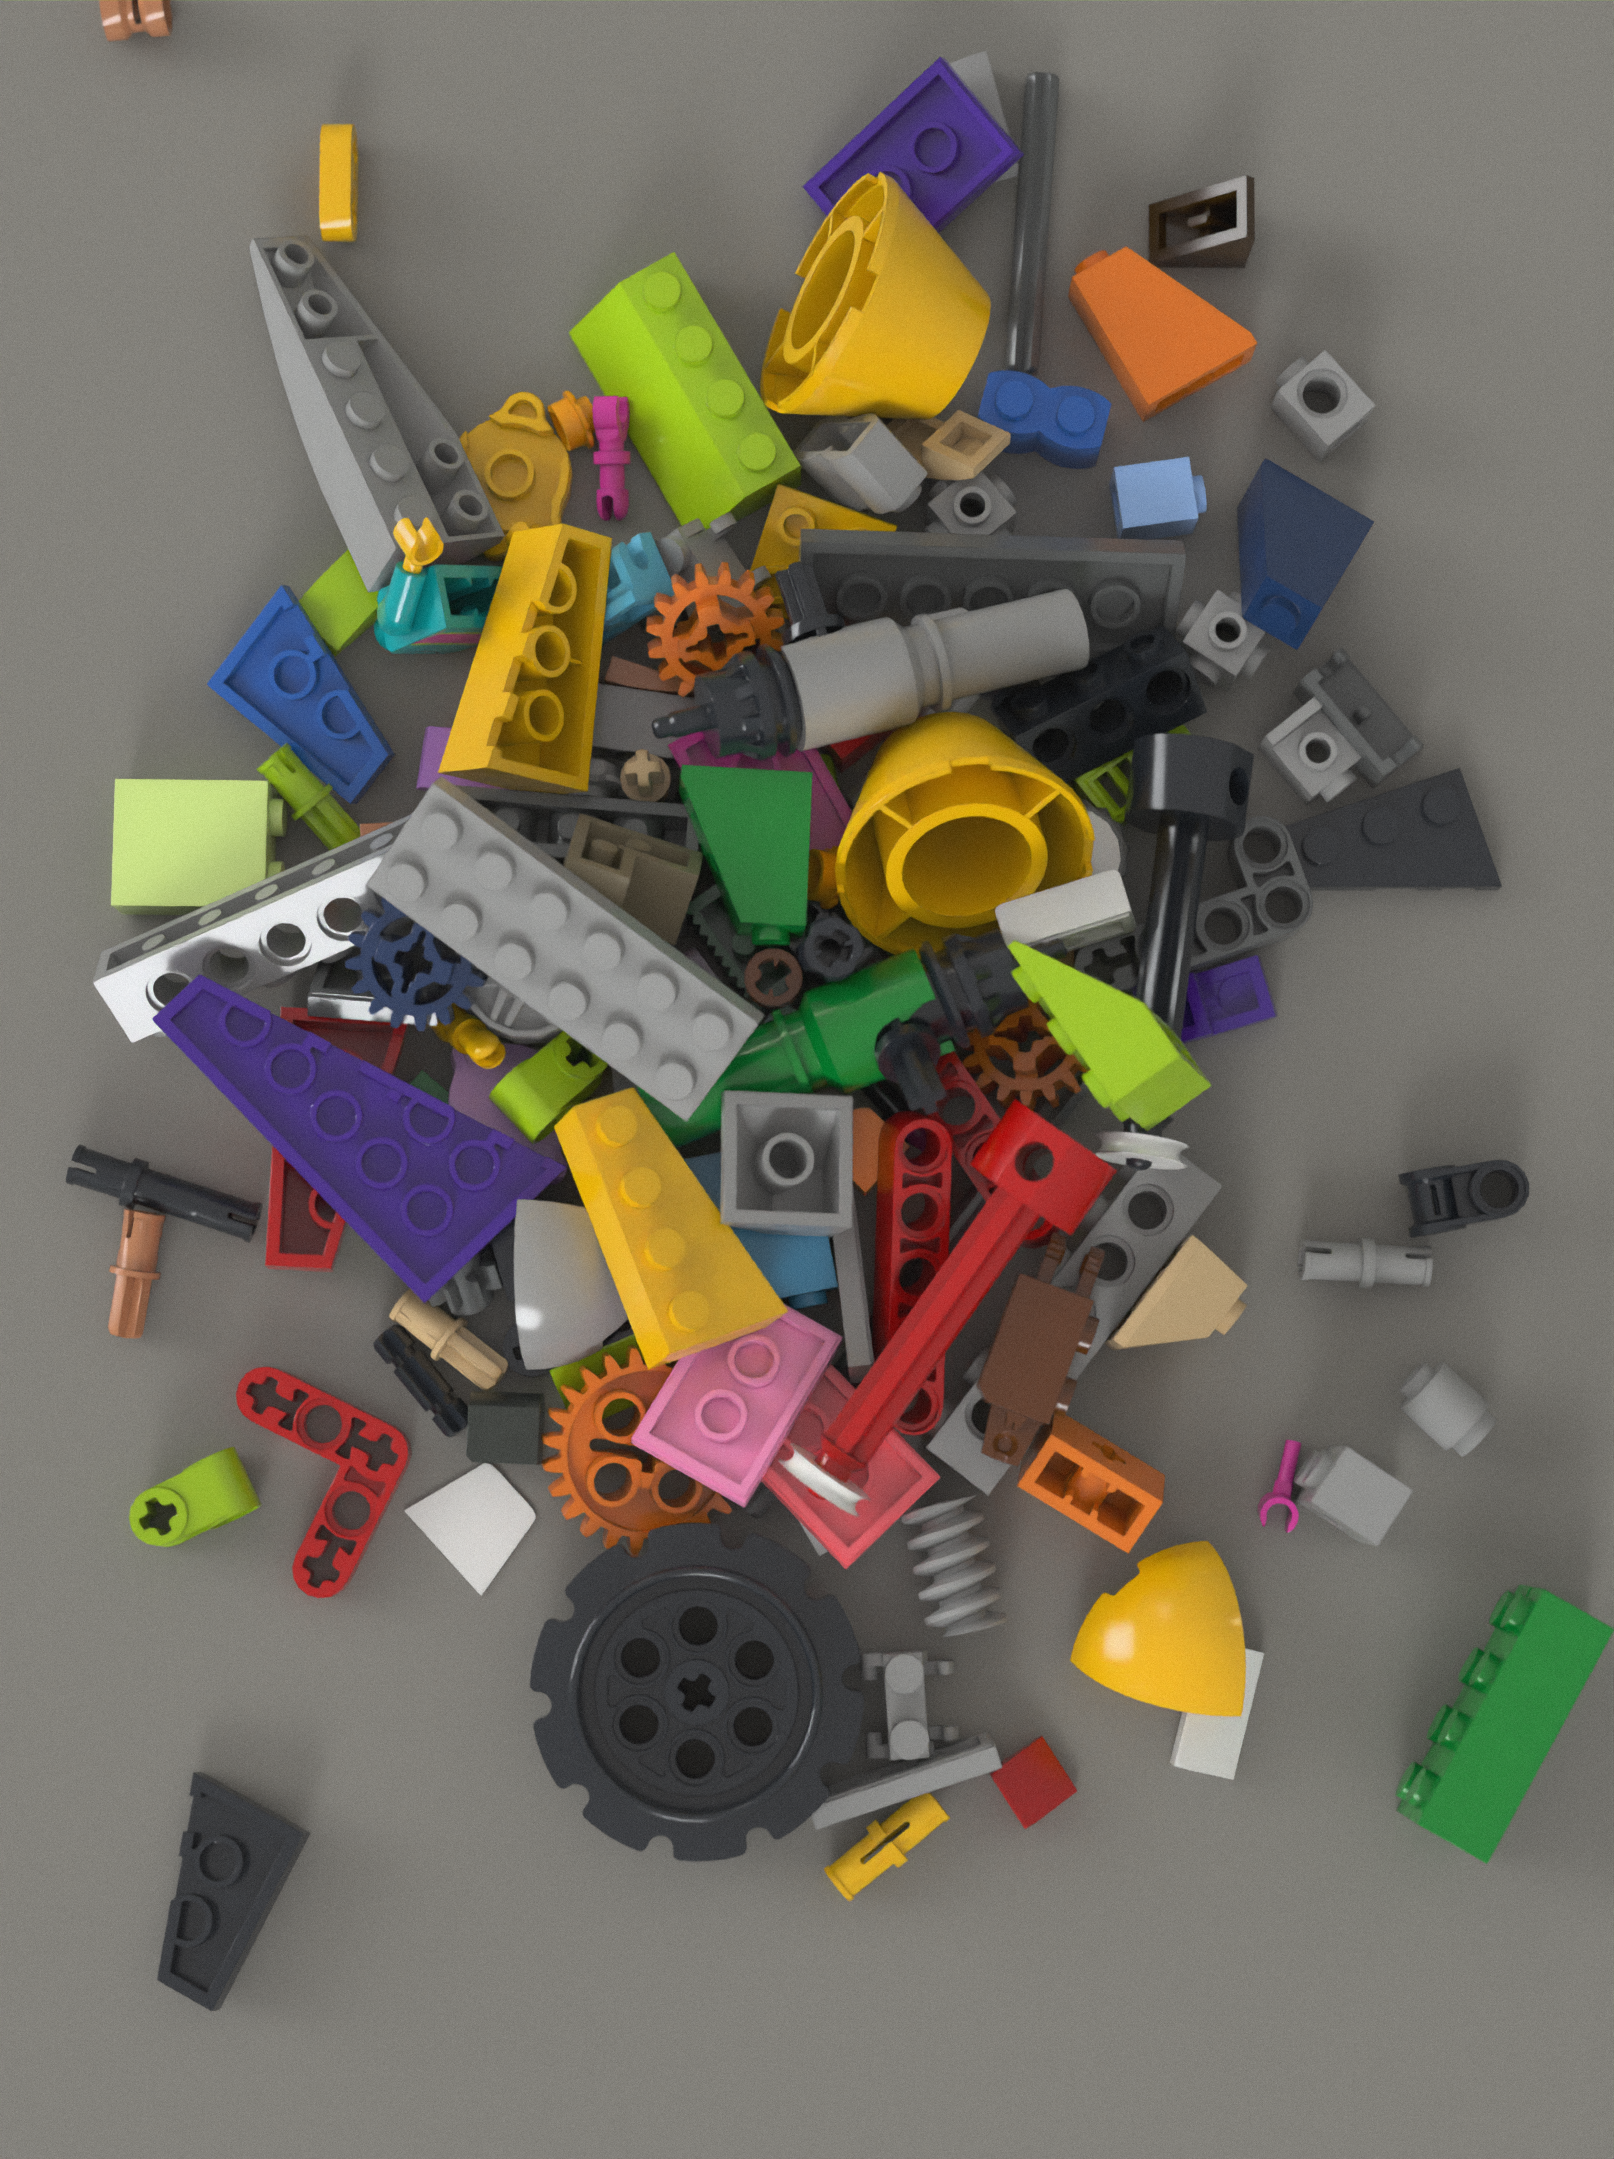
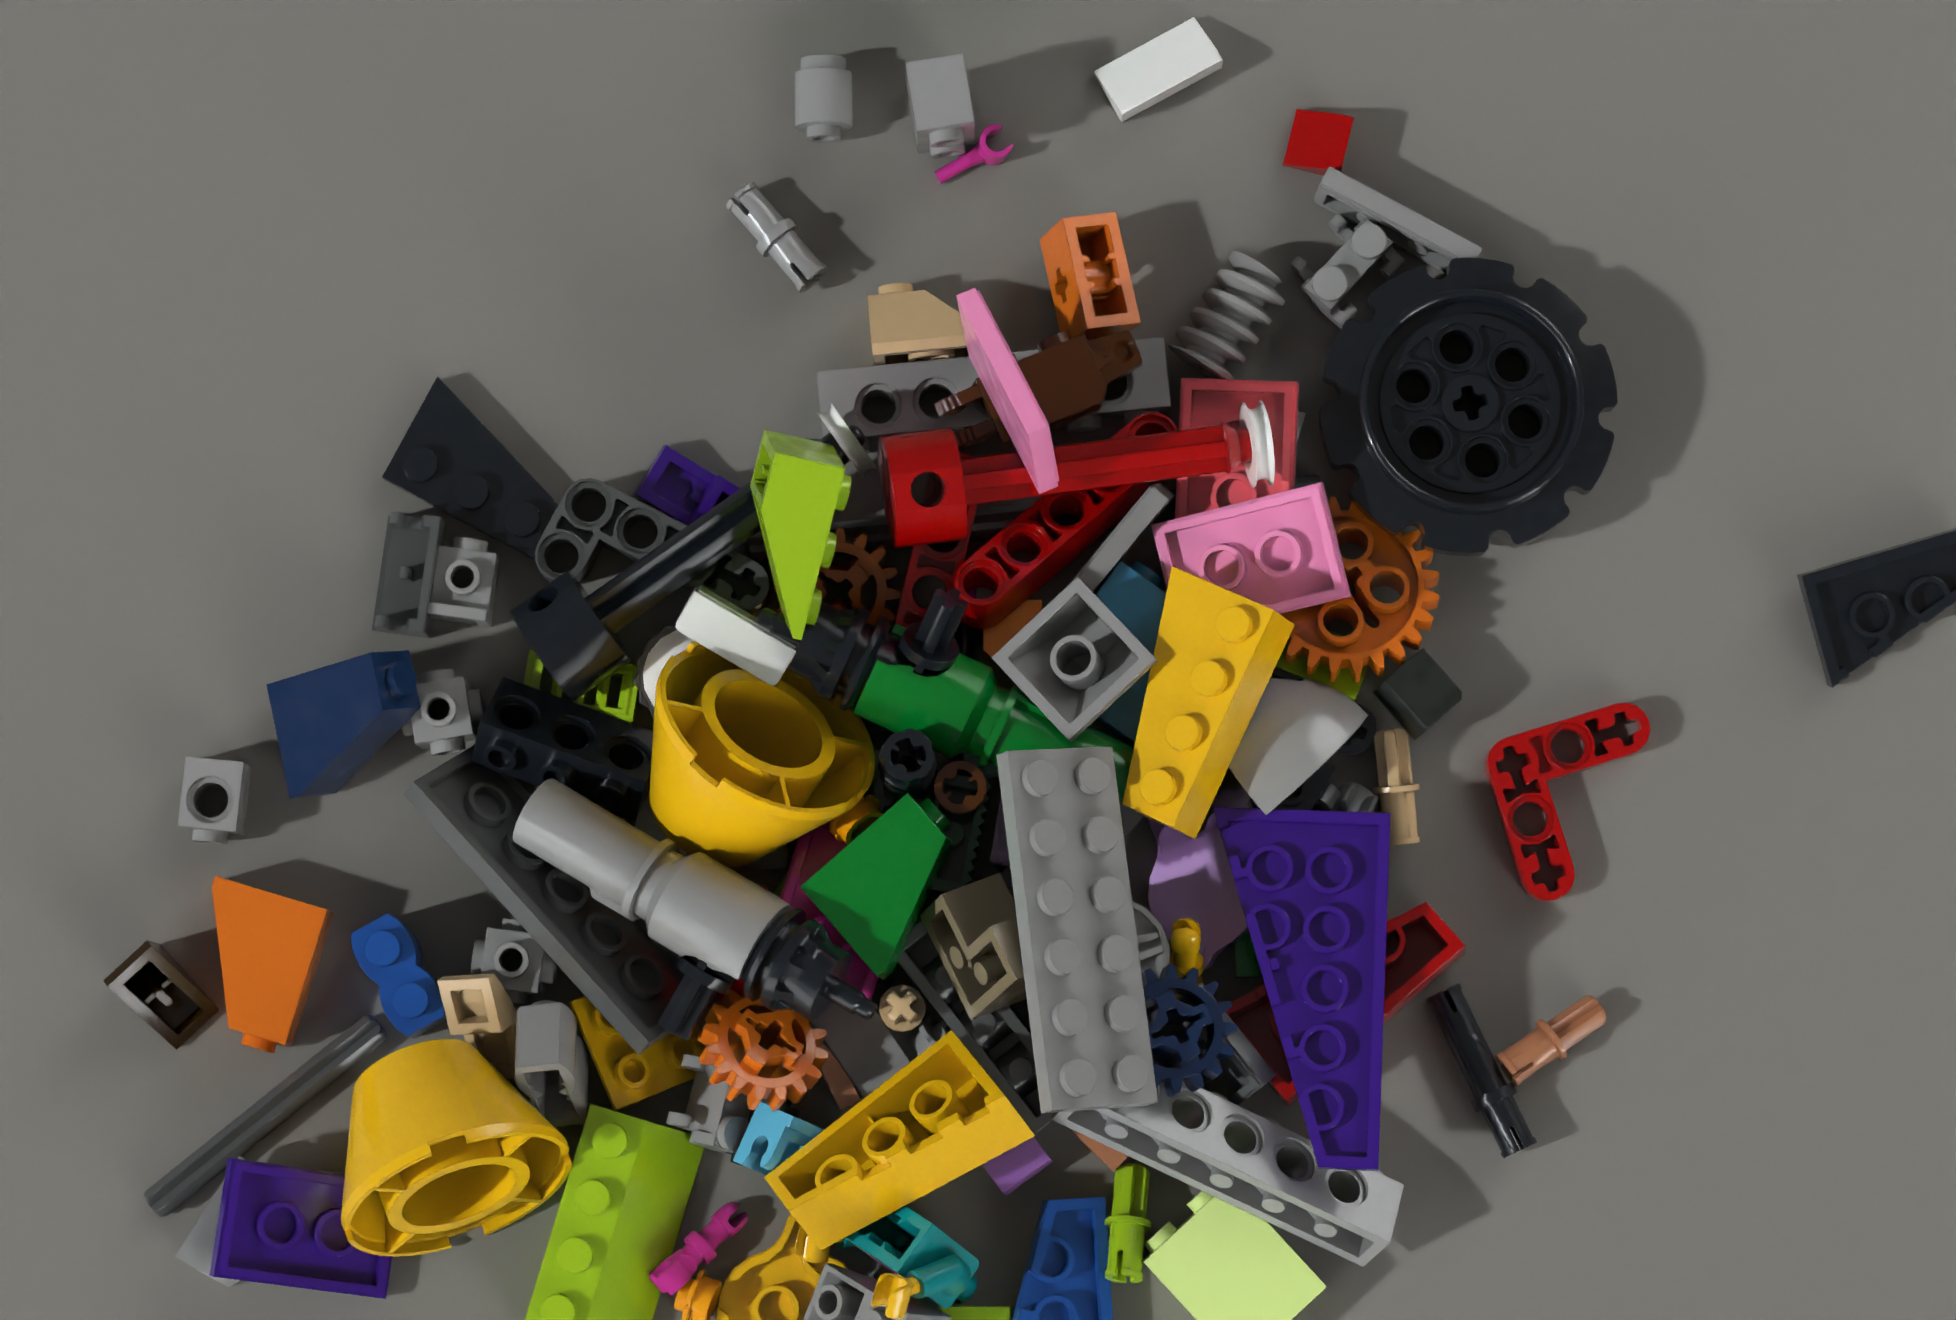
camera: 135 degrees left, 0 degrees up
(205, 1498) = (1650, 848): lime piece -> none
(422, 1380) = (1439, 780): black axle -> none
(475, 1523) = (1498, 659): white sticker -> none
(548, 1086) = (1175, 875): lime piece -> none
(851, 1872) = (1487, 203): yellow pin -> none
(1056, 1305) = (1008, 390): none -> bright pink tile
(1156, 499) = (384, 847): light blue brick -> none
(1170, 1635) = (1142, 137): yellow brick -> none
(1458, 1196) = (676, 215): black piece -> none

